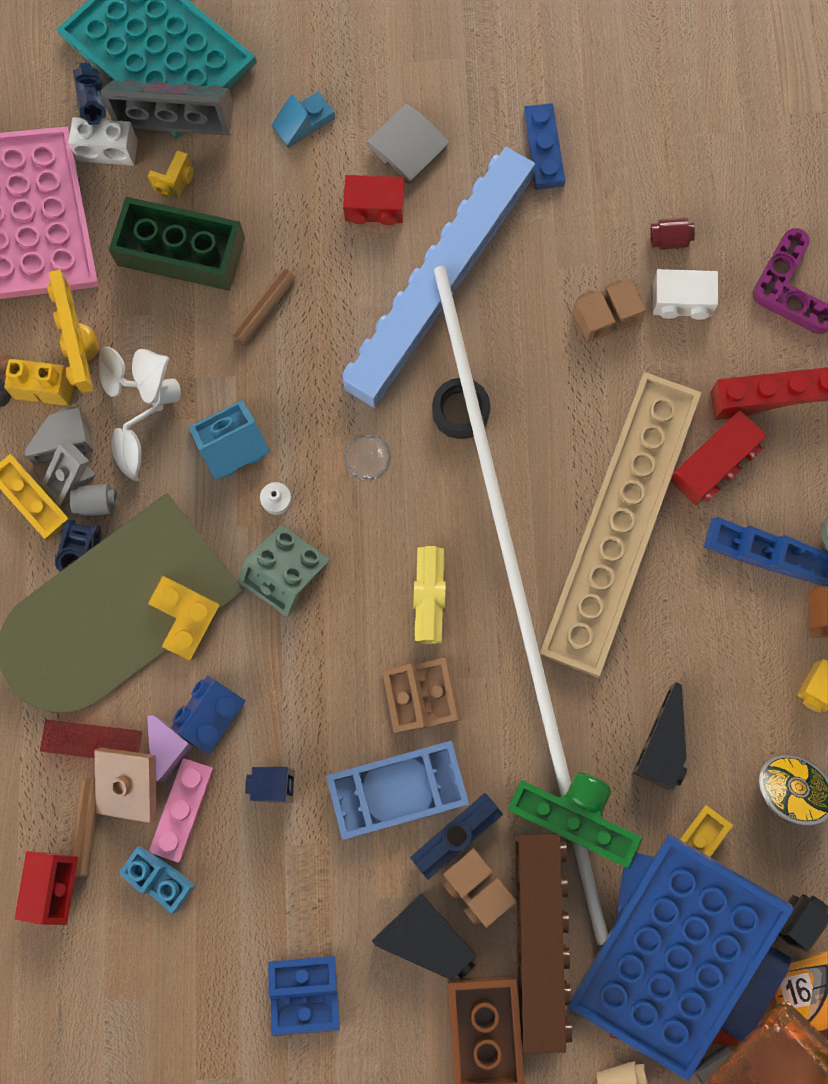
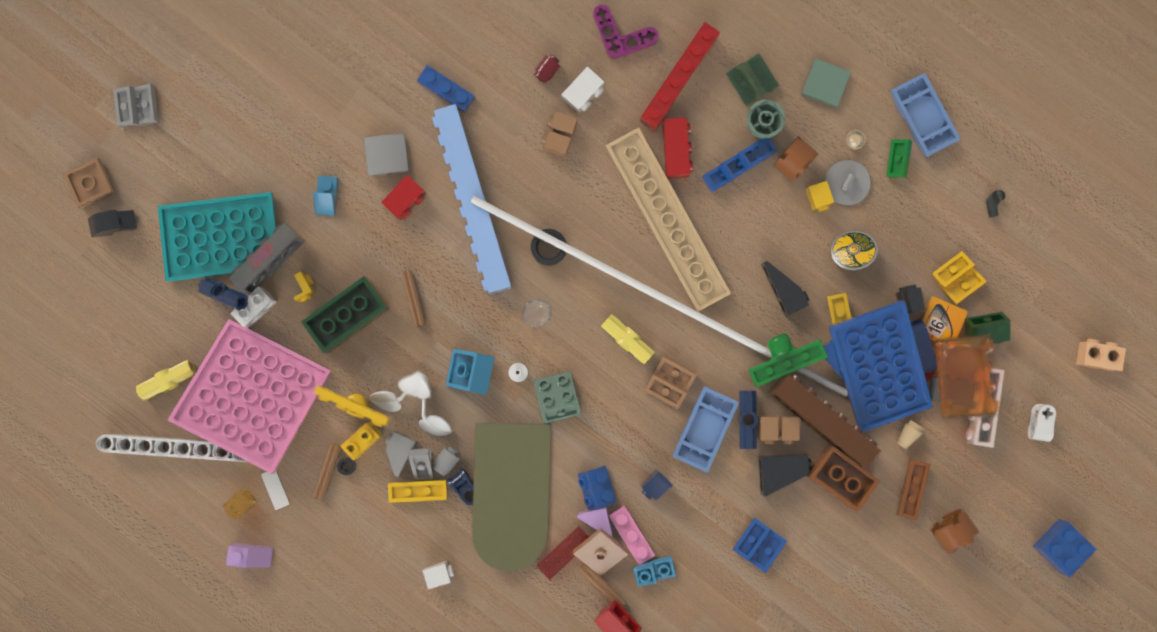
camera: 55 degrees left, 10 degrees up
(192, 615) = (542, 458): yellow plate -> none

